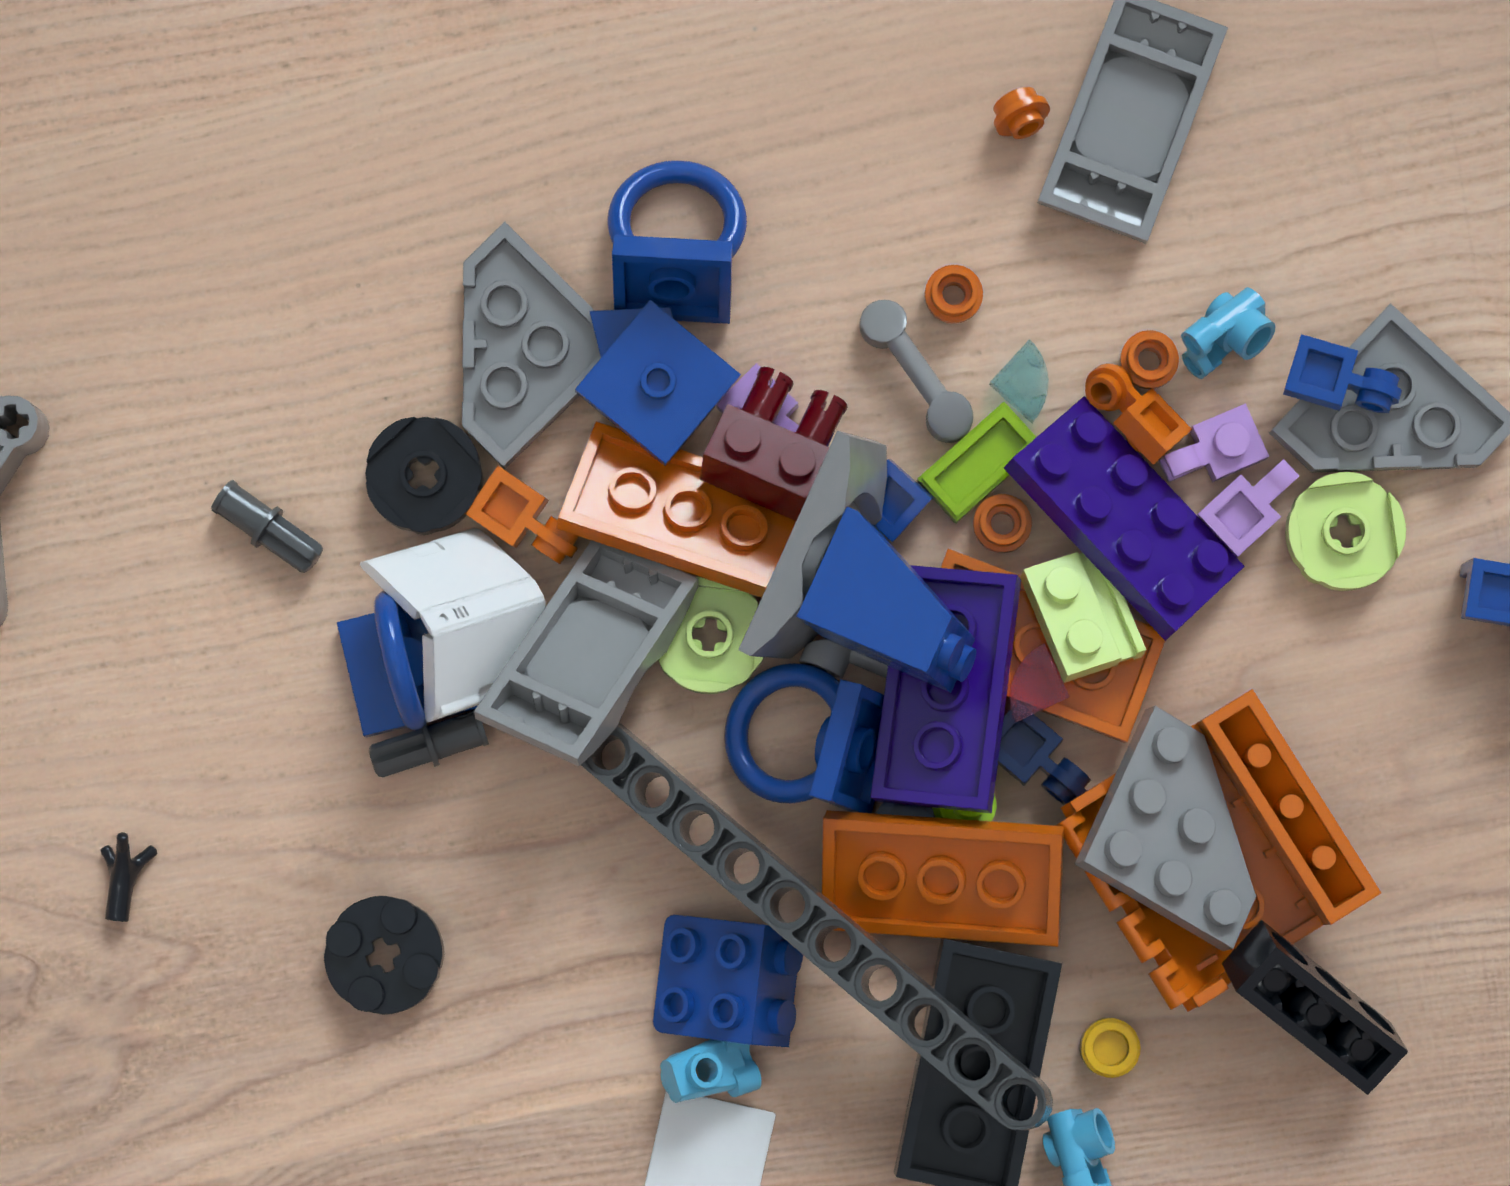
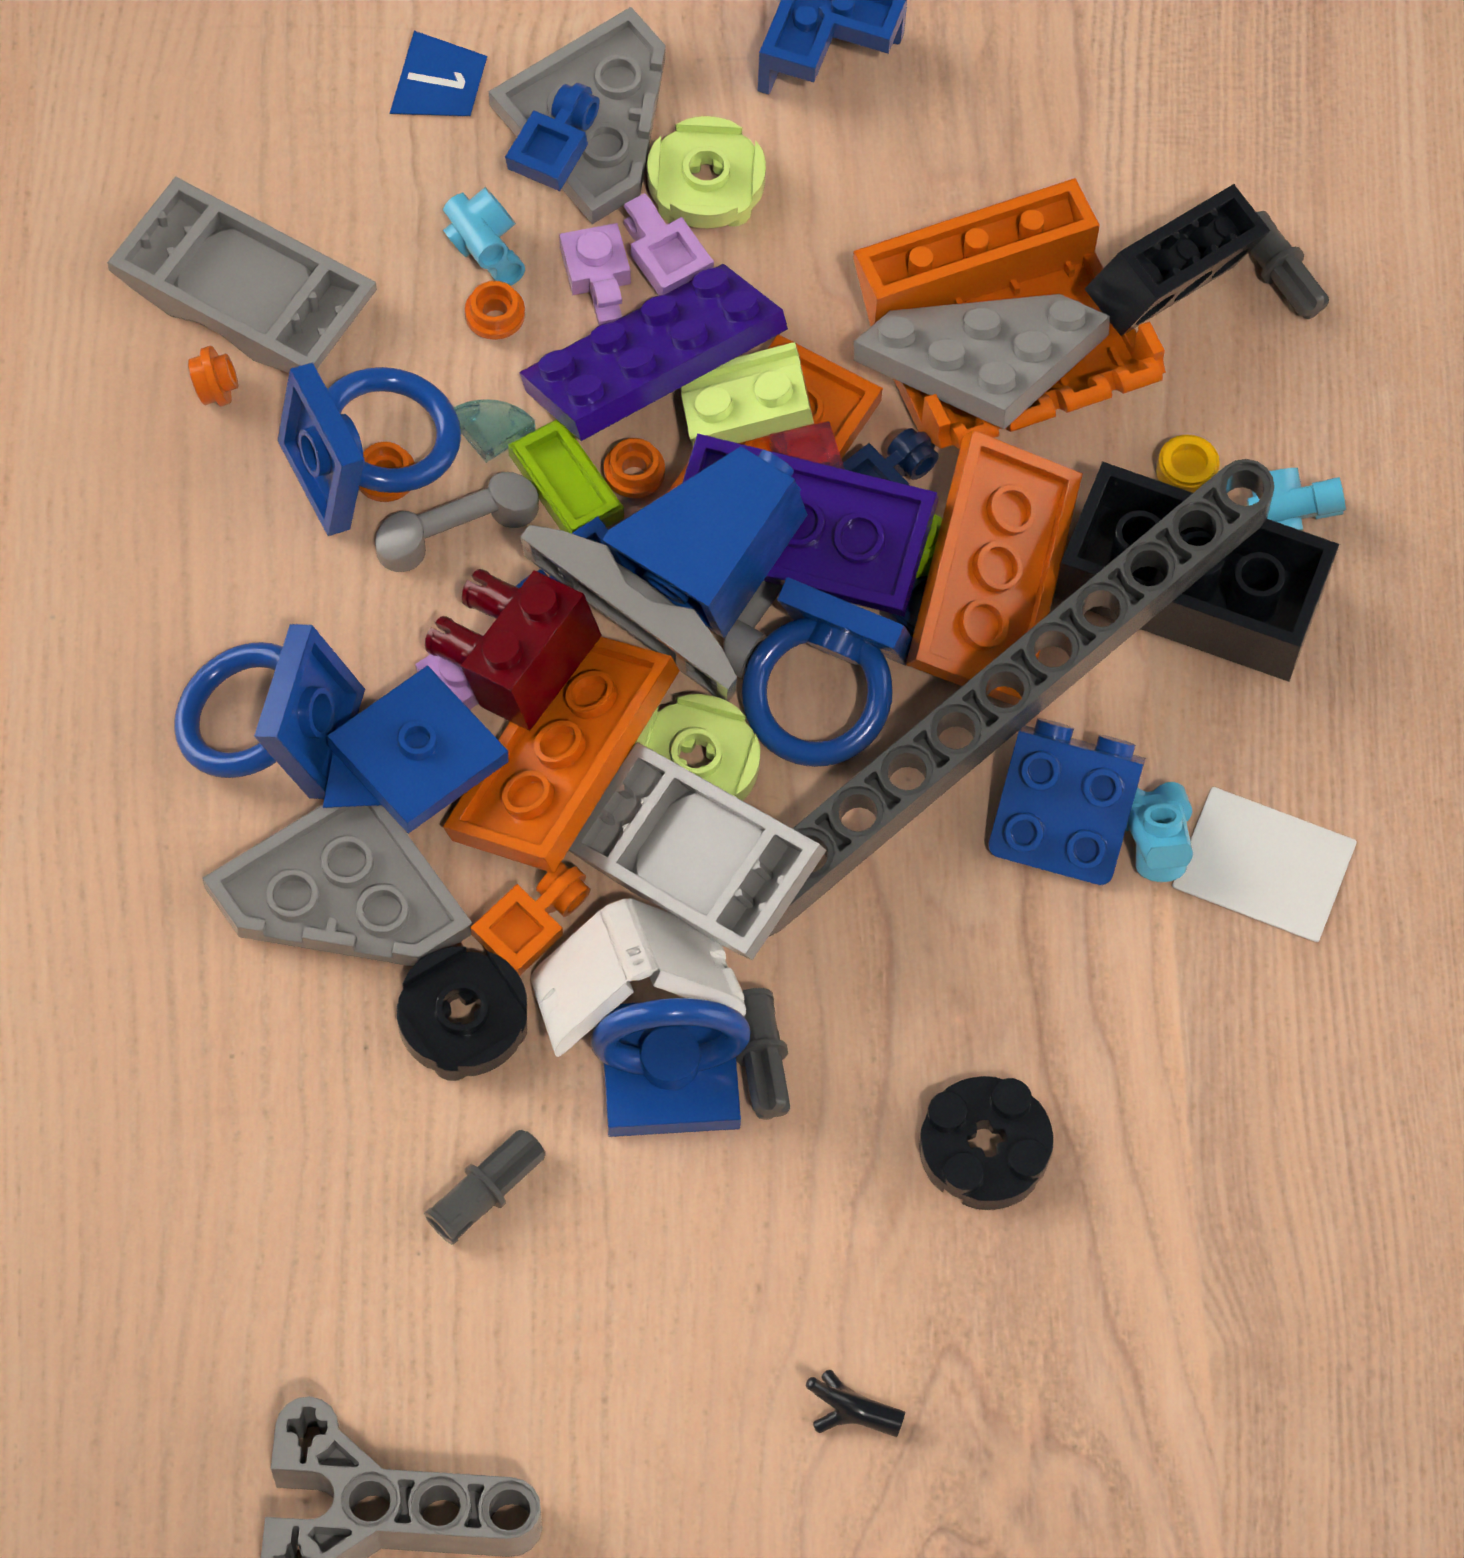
camera: 85 degrees left, 20 degrees down
(953, 237) = (328, 449): none -> blue tile
(1145, 419) = (557, 320): orange plate -> none
(1350, 1117) = (1284, 267): none -> dark grey axle
(1412, 251) = (438, 78): none -> blue sticker

